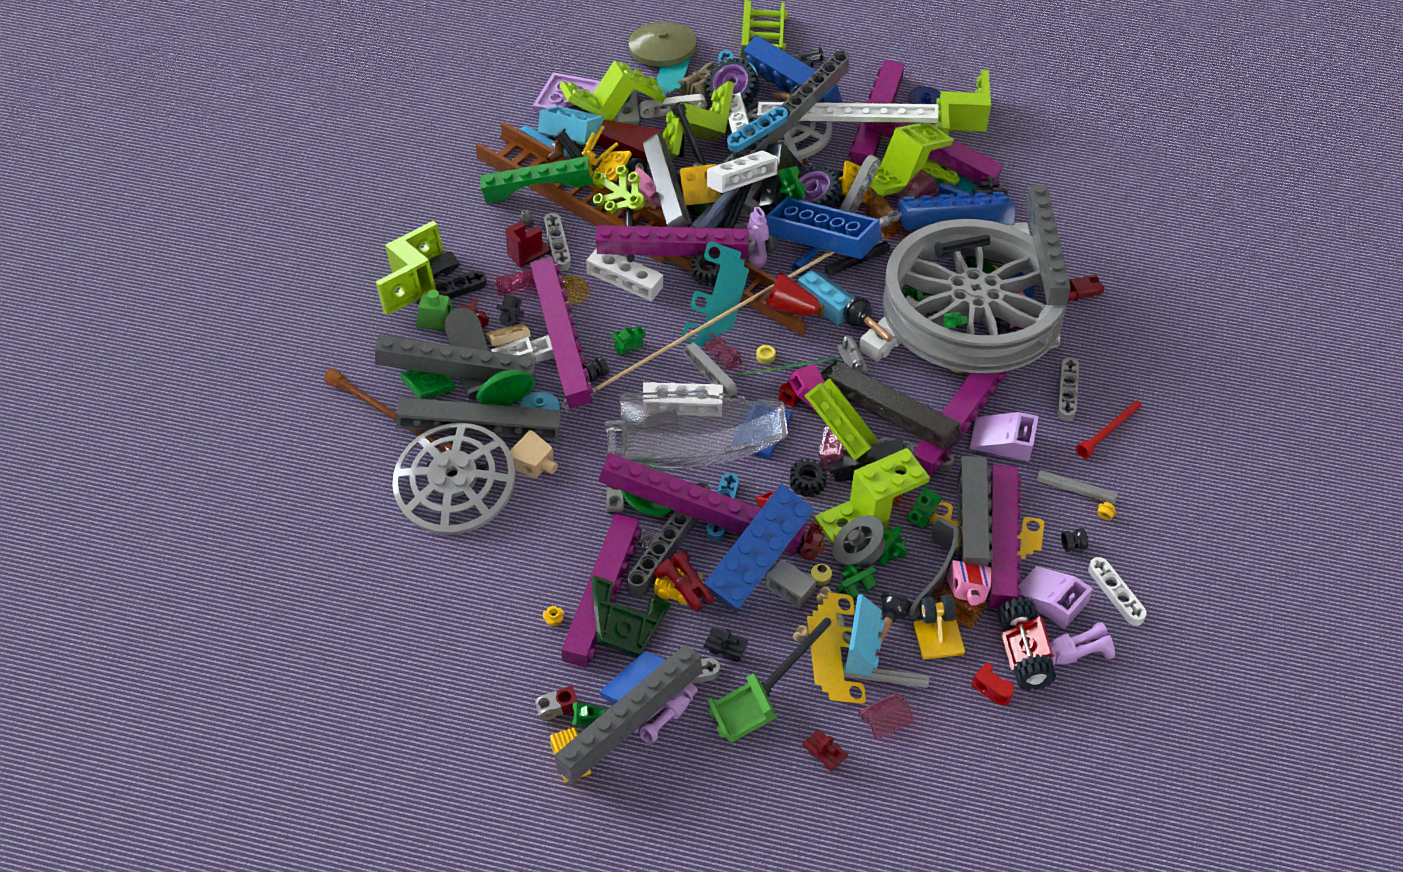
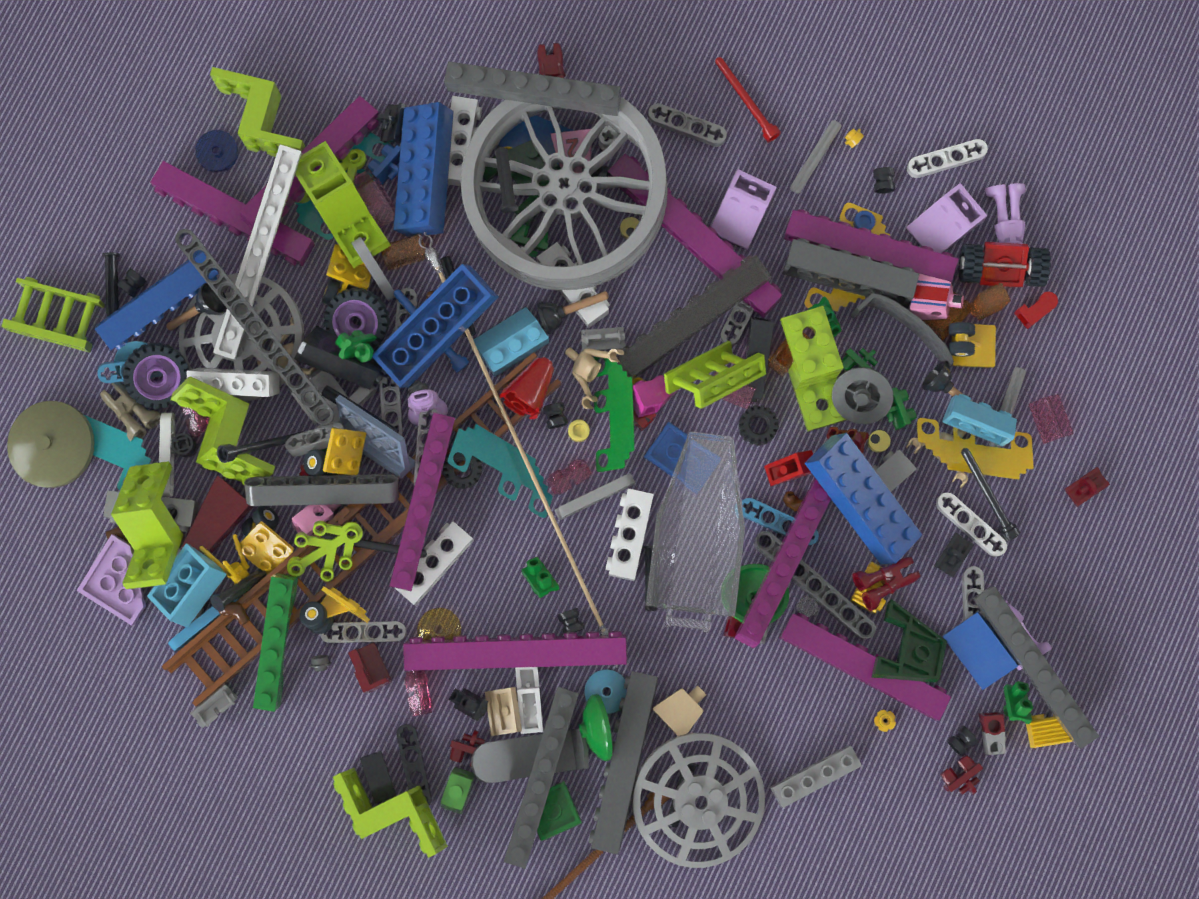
camera: 80 degrees left, 30 degrees up
(478, 160) = (213, 705): none -> light grey hinge
(490, 563) = (815, 776): none -> light grey brick
(509, 687) = (954, 781): none -> dark red hips
(546, 679) = (965, 740): none -> black wheel
(563, 208) = (319, 616): none -> plate
(742, 171) = (364, 425): white brick -> none
(742, 710) = (1032, 556): bright green panel -> none
(761, 661) = (968, 528): none -> white beam
(770, 117) = (275, 367): dark azure beam -> none
(773, 333) = (555, 415): none -> black wheel
(820, 346) = (587, 368): none -> tan piece
(953, 319) = (621, 221): green plate -> none
(984, 634) = (989, 301): none -> clear orange brick
(1029, 533) = (864, 219): none -> blue tile

